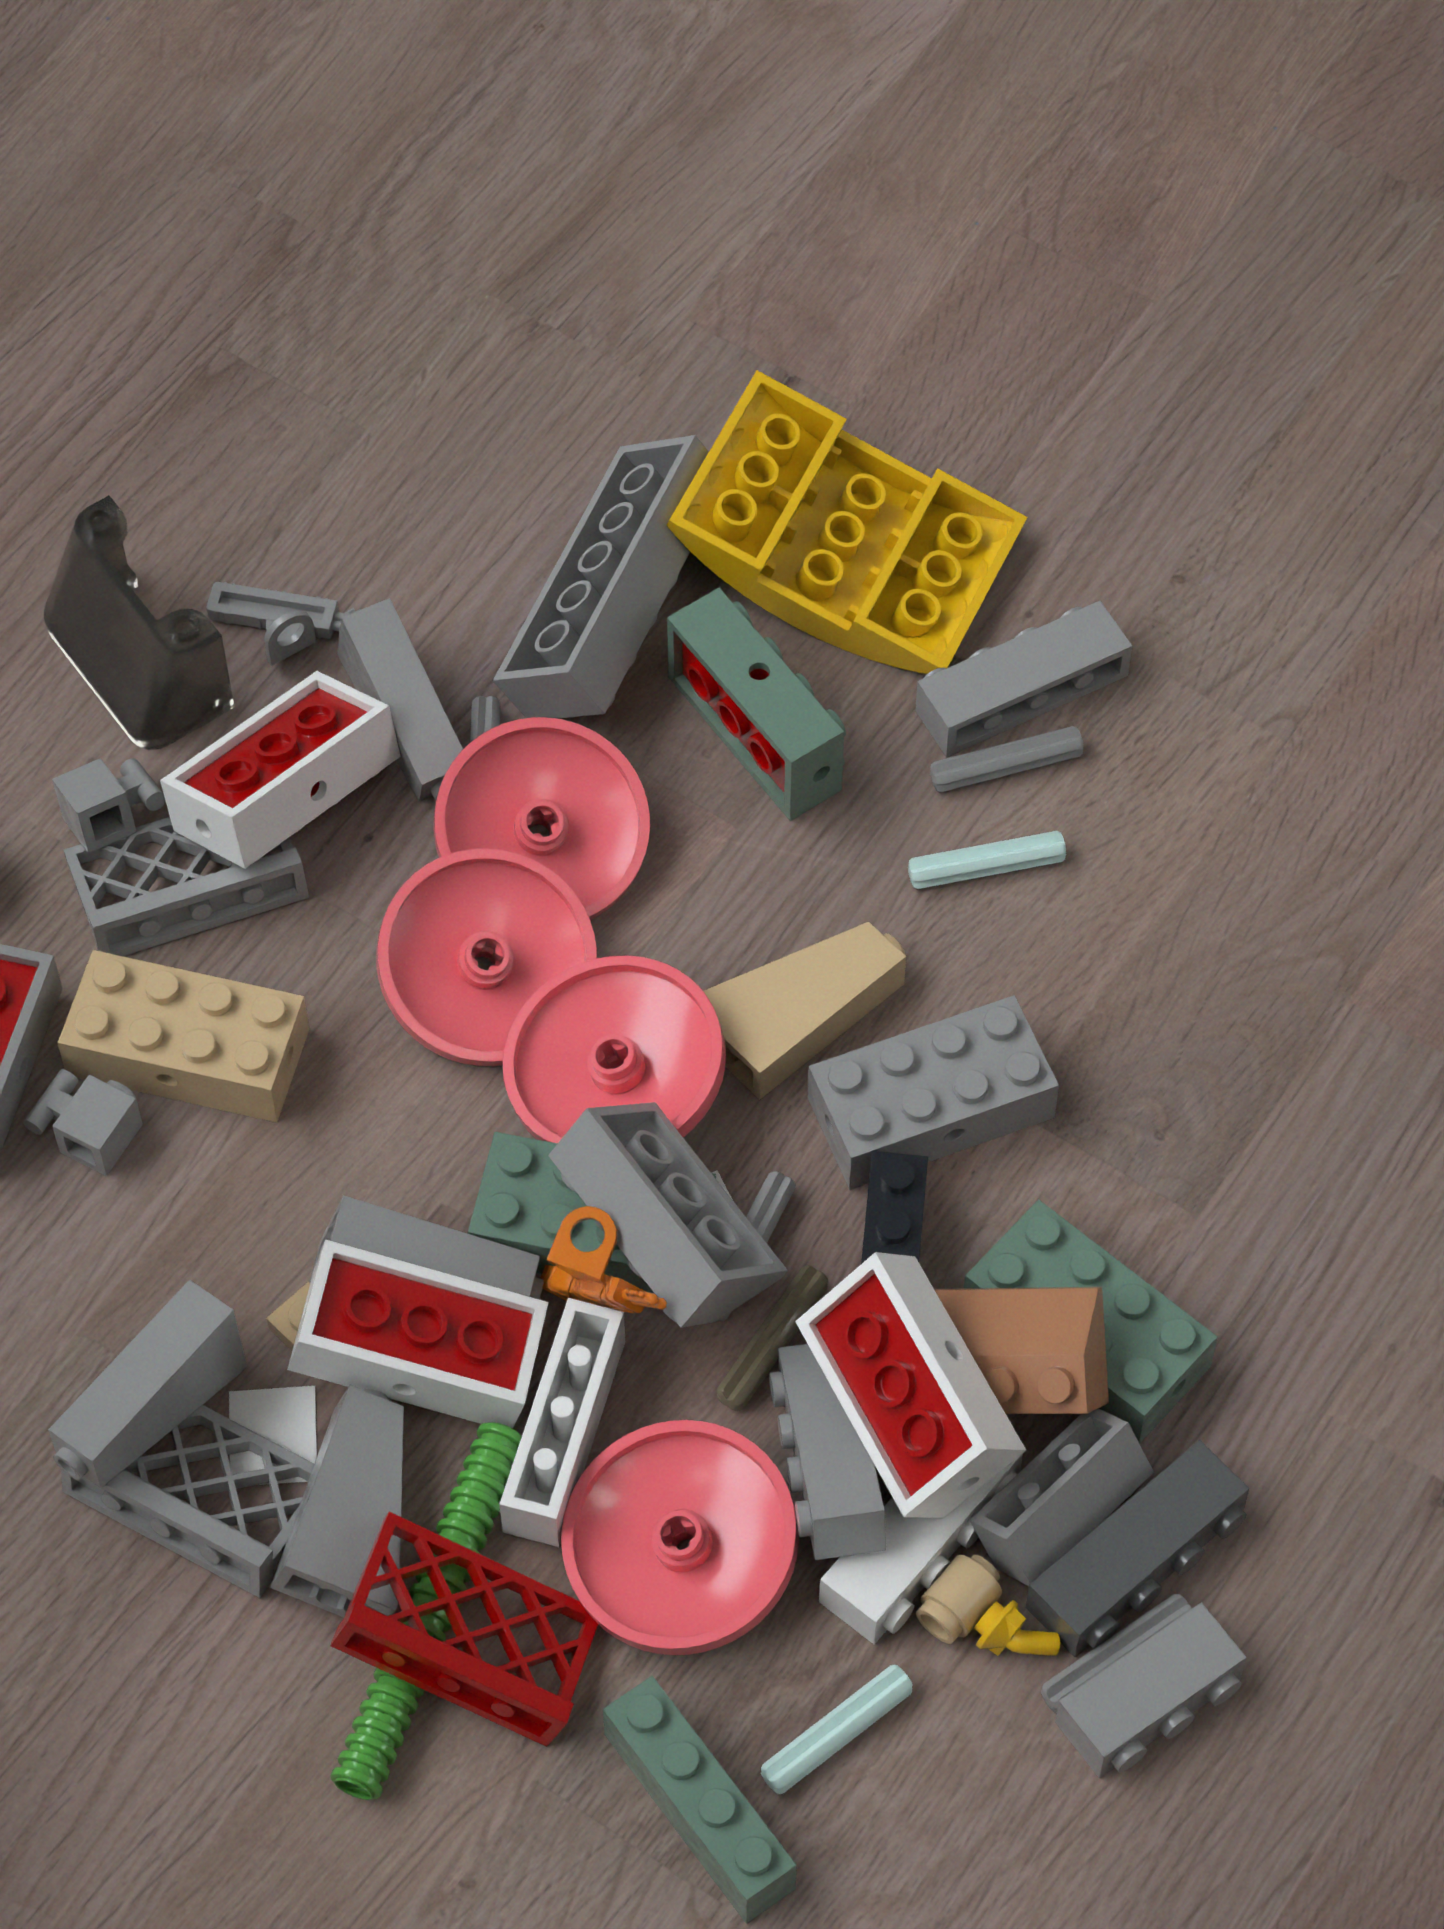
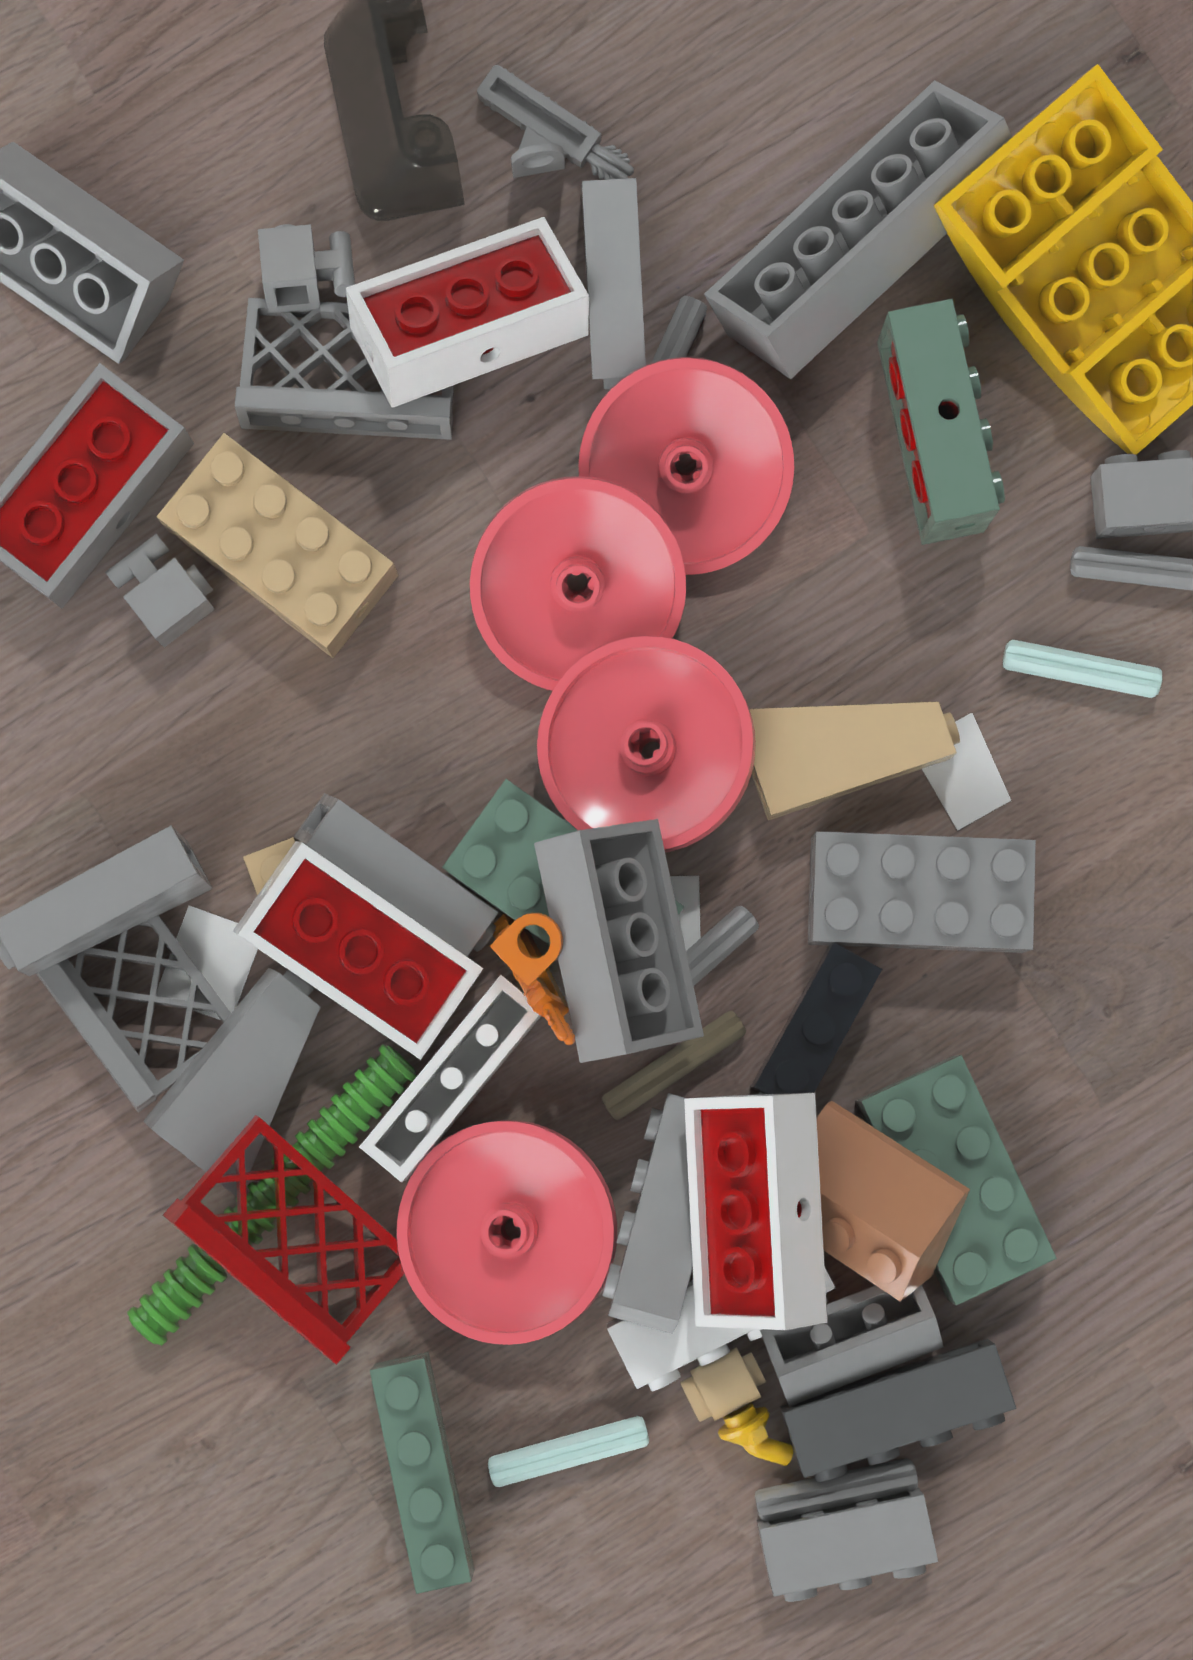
camera: 25 degrees right, 25 degrees up
(928, 990) = (970, 780): none -> white sticker

